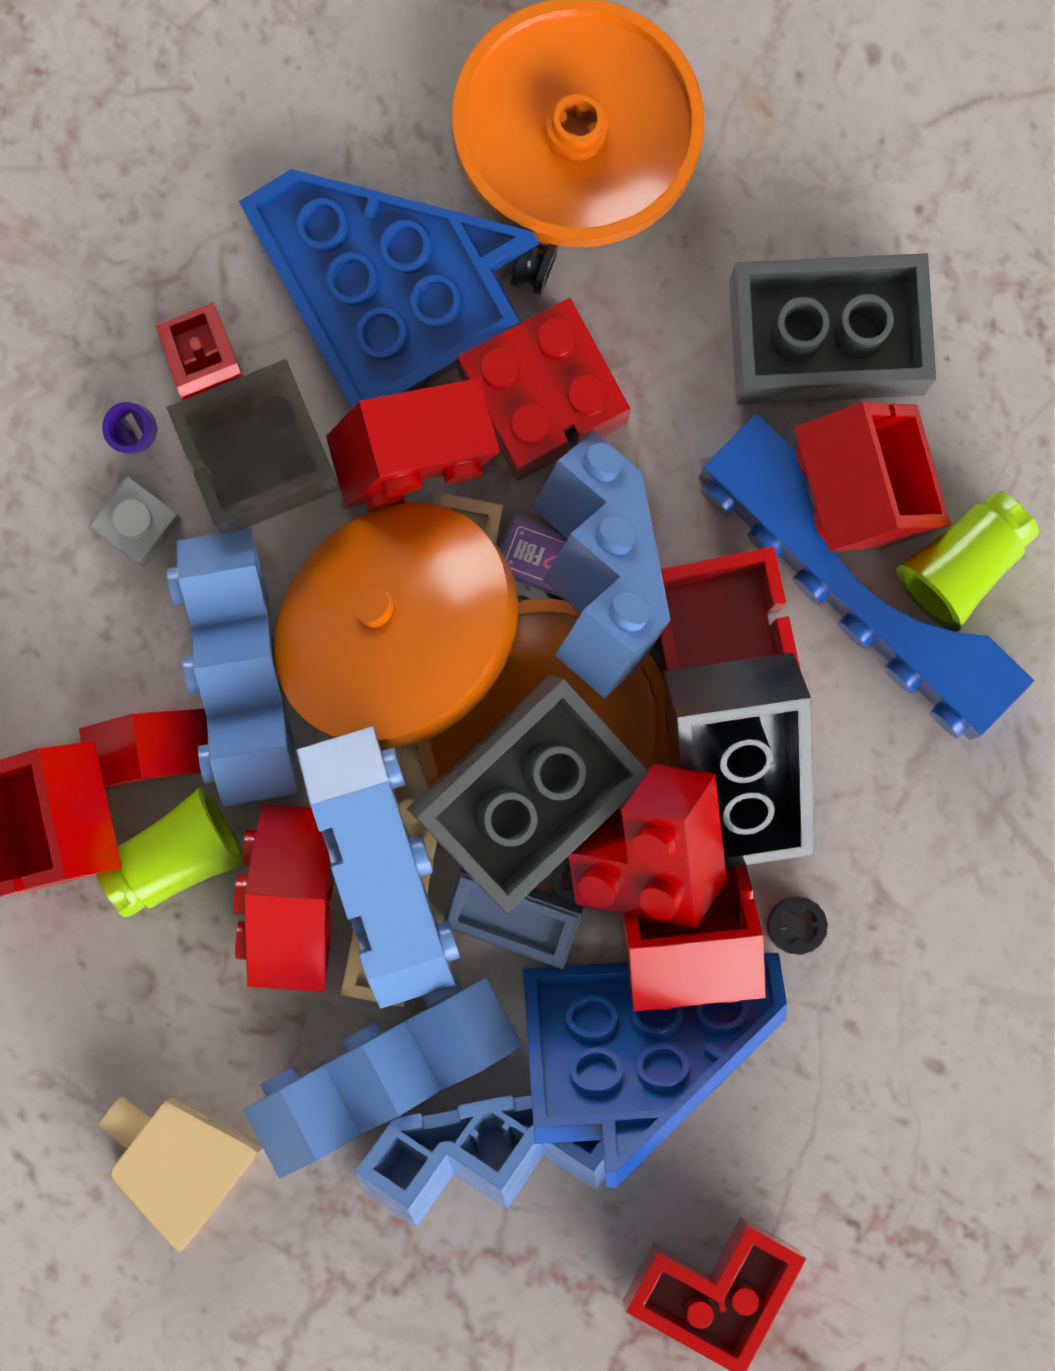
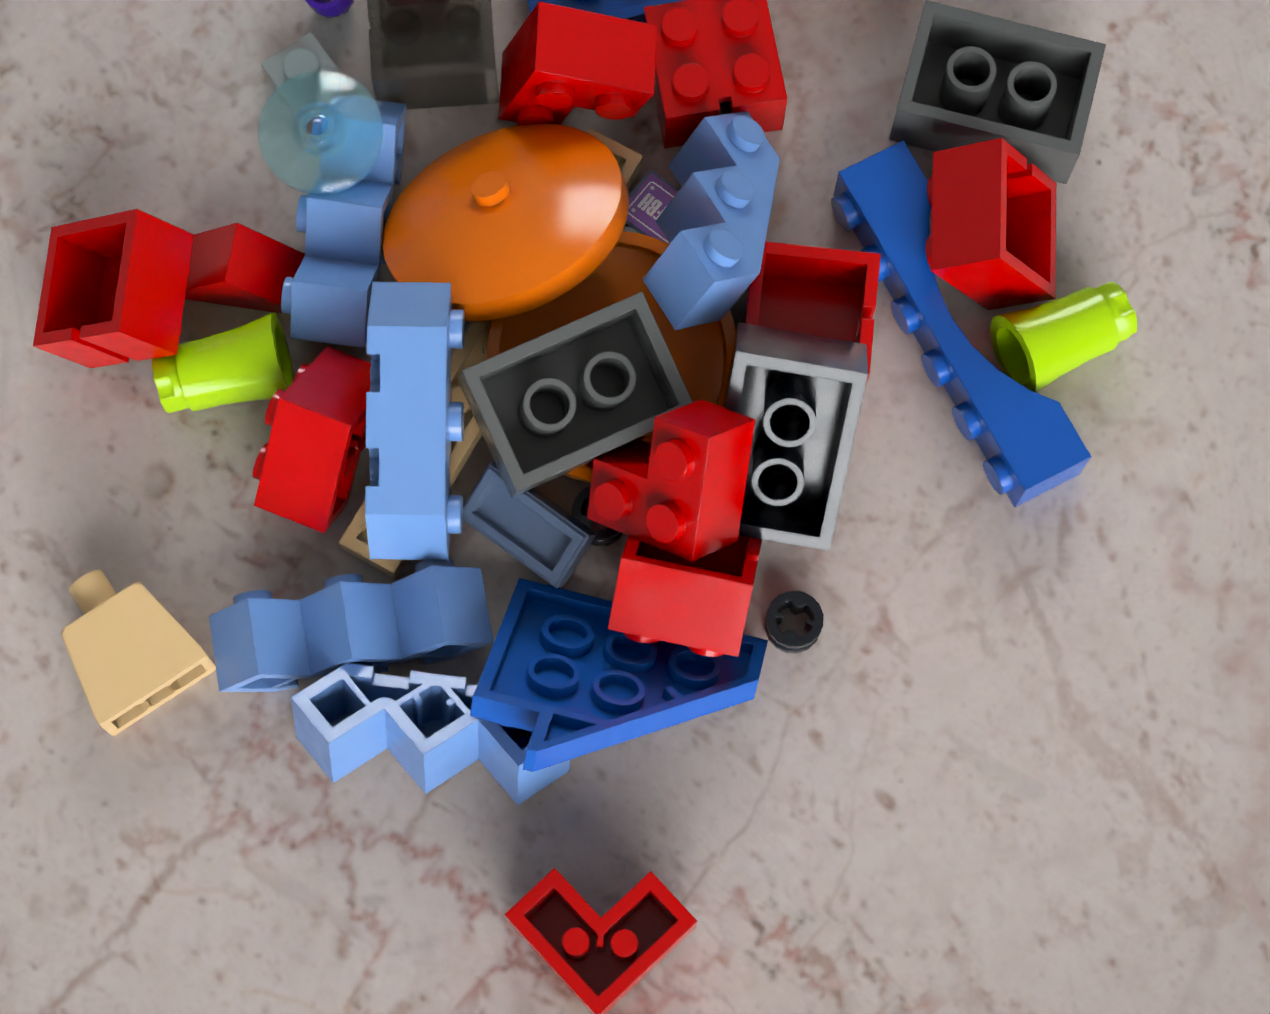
camera: 20 degrees right, 10 degrees down
(217, 590) = (327, 160): none -> clear light blue dish

